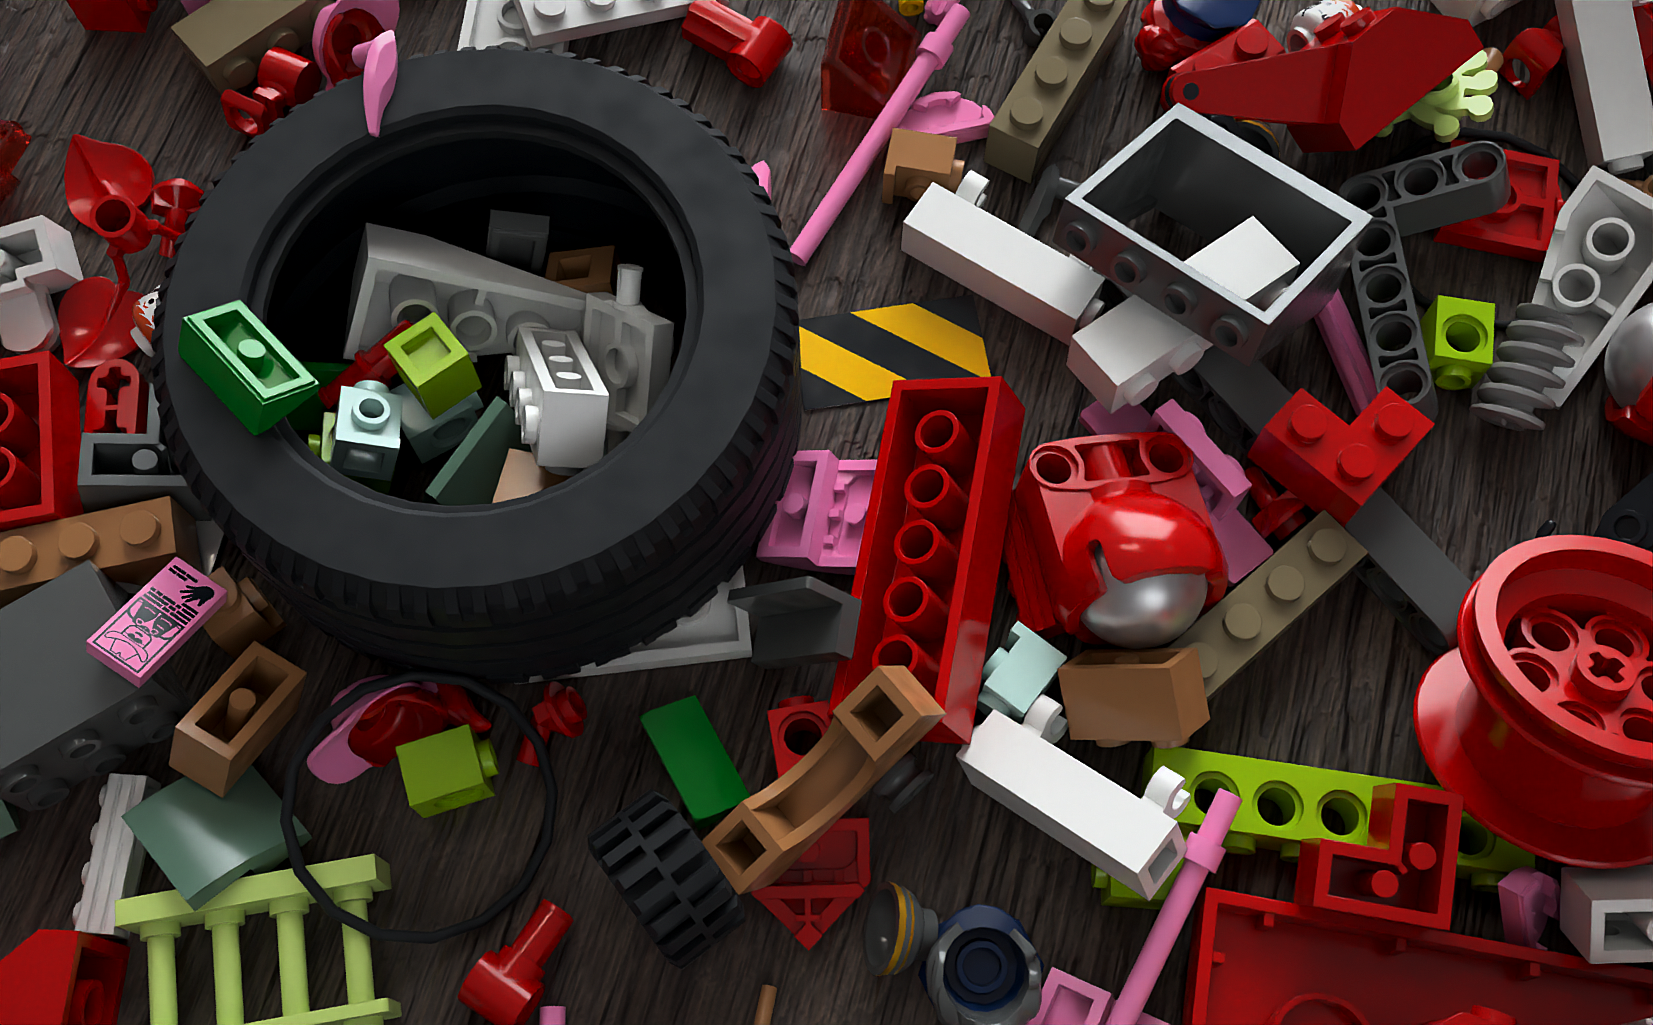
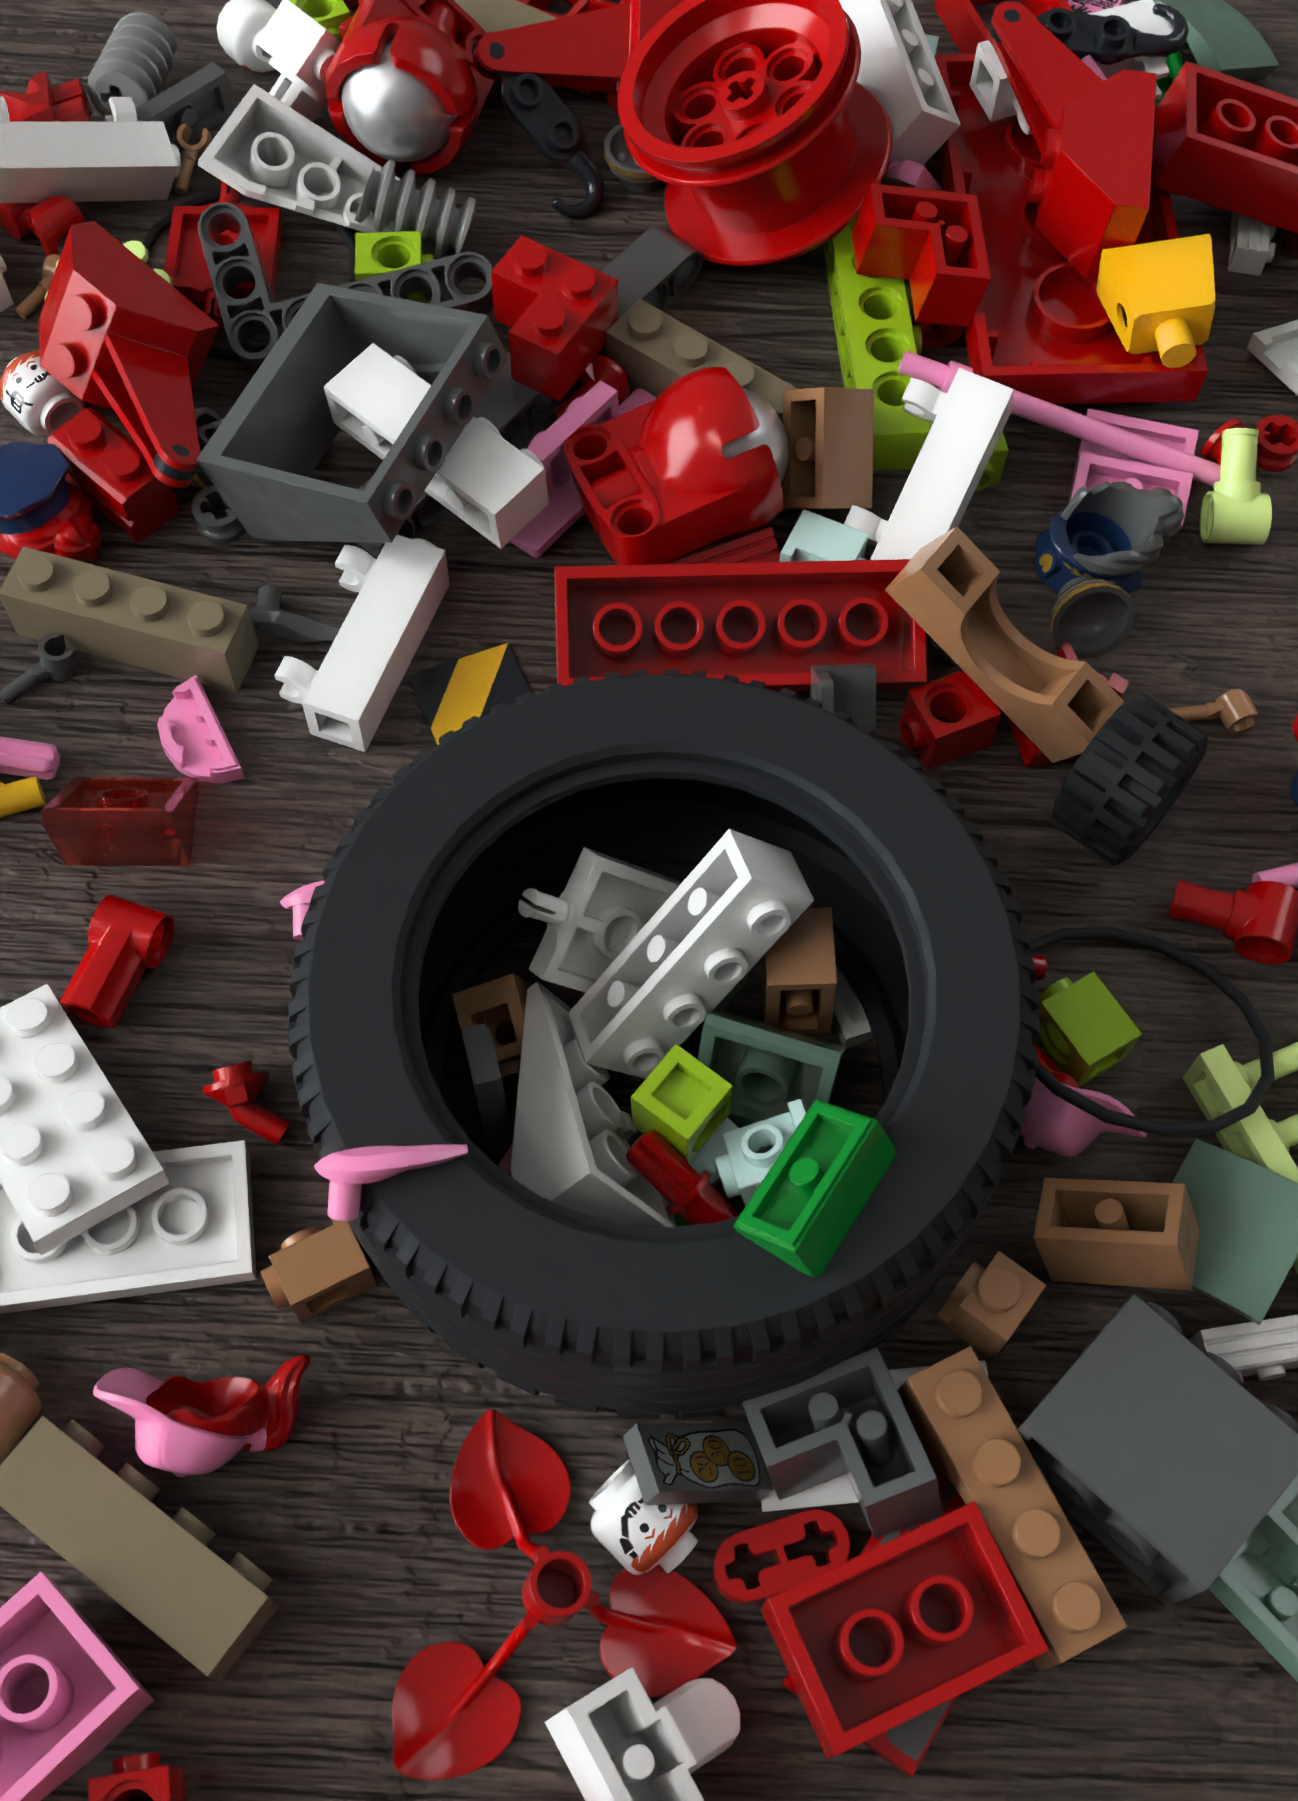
camera: 105 degrees left, 5 degrees down
(156, 622) = (1069, 1312): bright pink tile -> none
(174, 201) = (474, 1578): red plate -> none
(282, 82) = (258, 1505): red leg -> none
(694, 760) = (1007, 803): green slope -> none
(917, 161) = (271, 735): medium nougat brick -> none
(932, 56) = (118, 744): bright pink bar -> none

